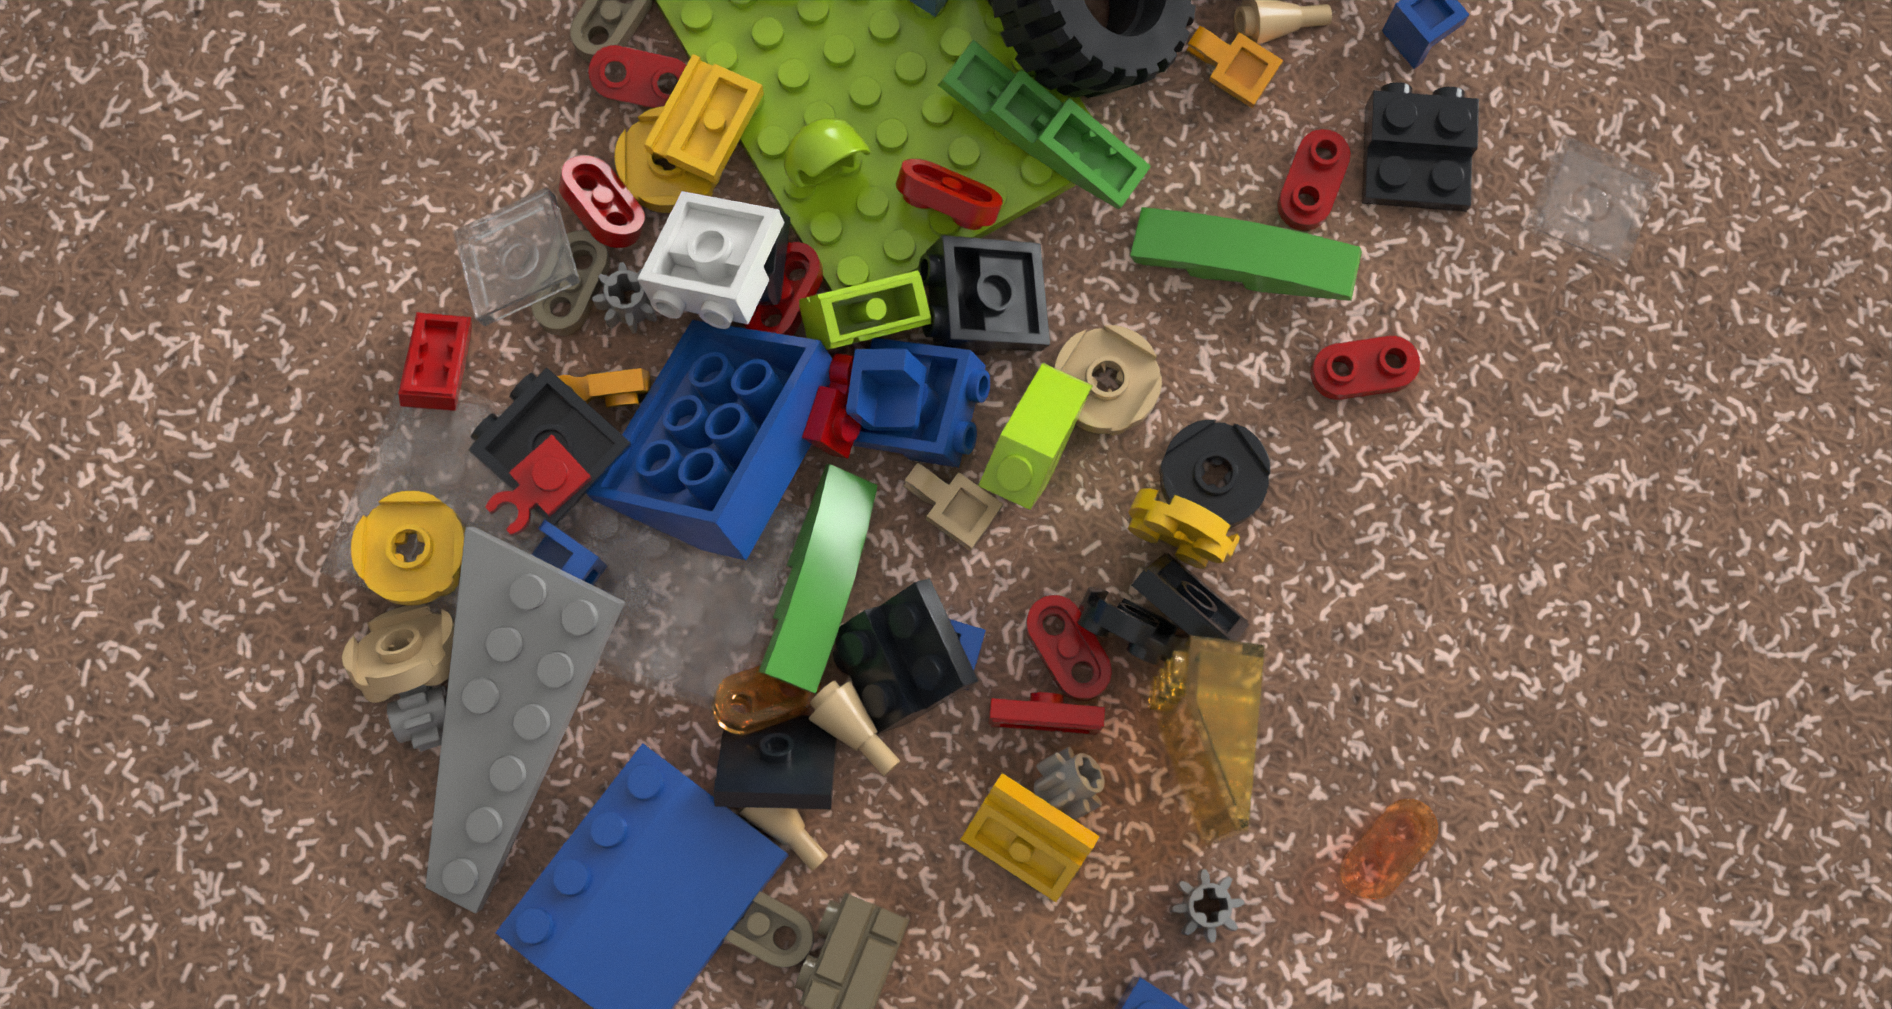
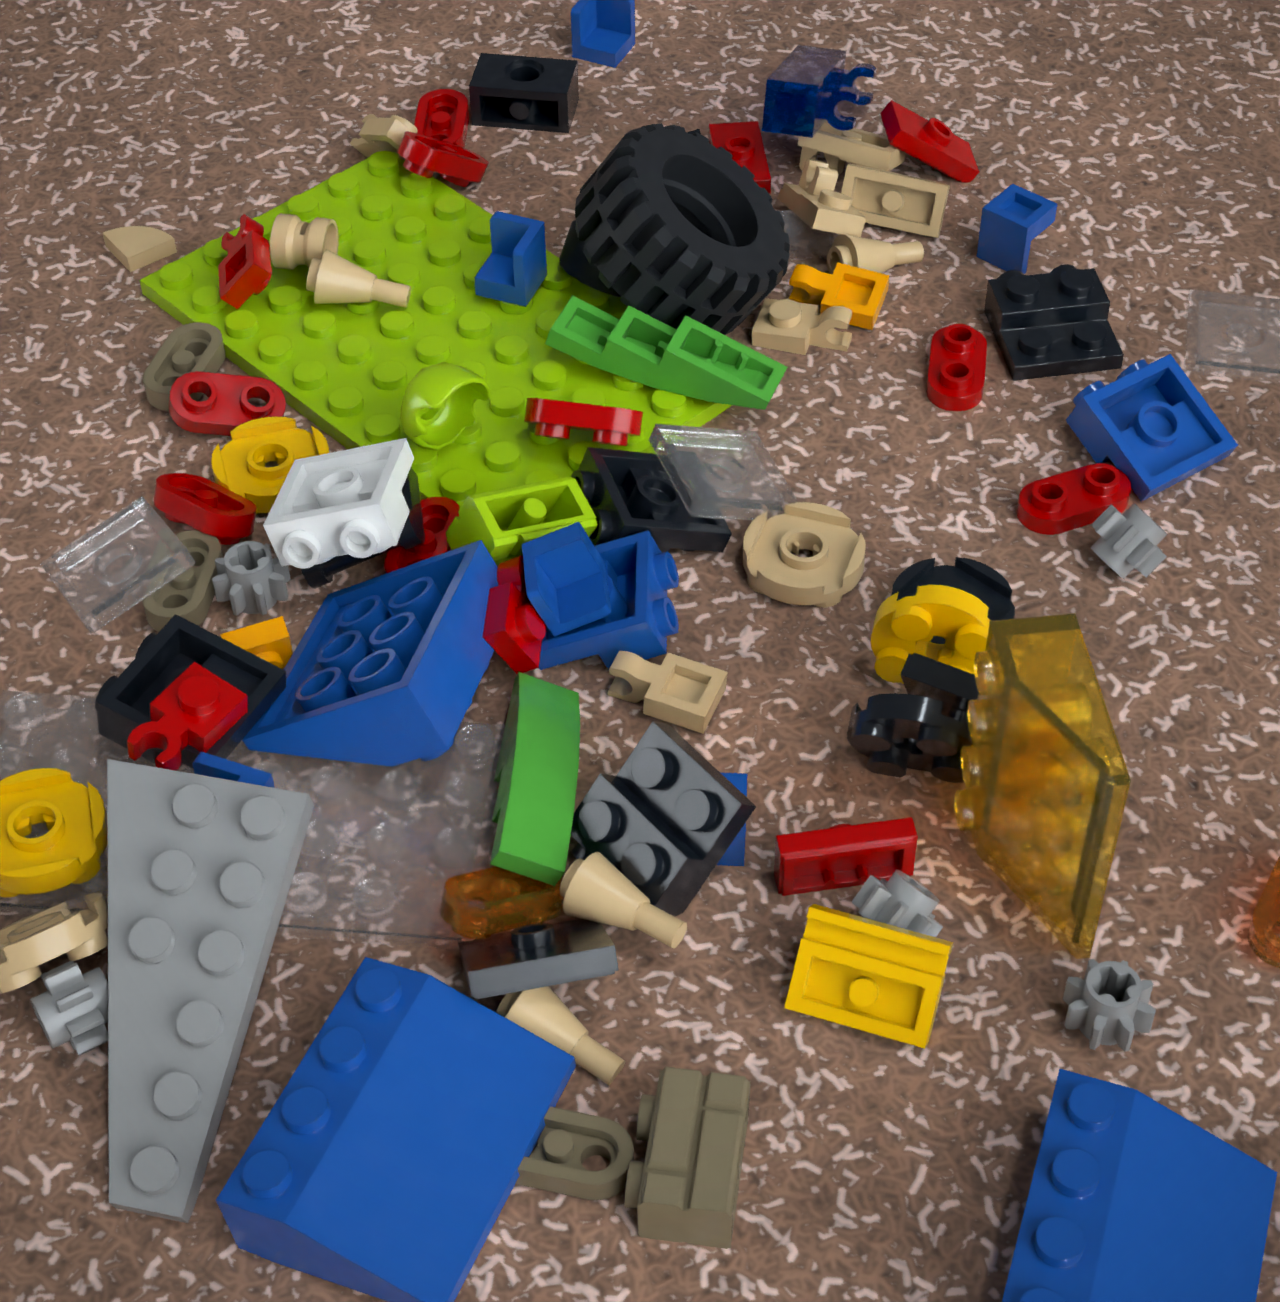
camera: 10 degrees left, 30 degrees down
(435, 361) = (39, 668): red plate -> none
(704, 118) = (304, 409): yellow plate -> none
(1035, 437) = (743, 595): lime slope -> none
(1061, 272) = (721, 472): none -> clear tile
(1068, 648) = (854, 788): red plate -> none
(1183, 91) = (796, 325): none -> tan plate
(1247, 252) = (927, 422): bright green slope -> none
(1391, 441) = (1128, 541): none -> light grey gear
(1460, 308) = (1150, 426): none -> blue plate

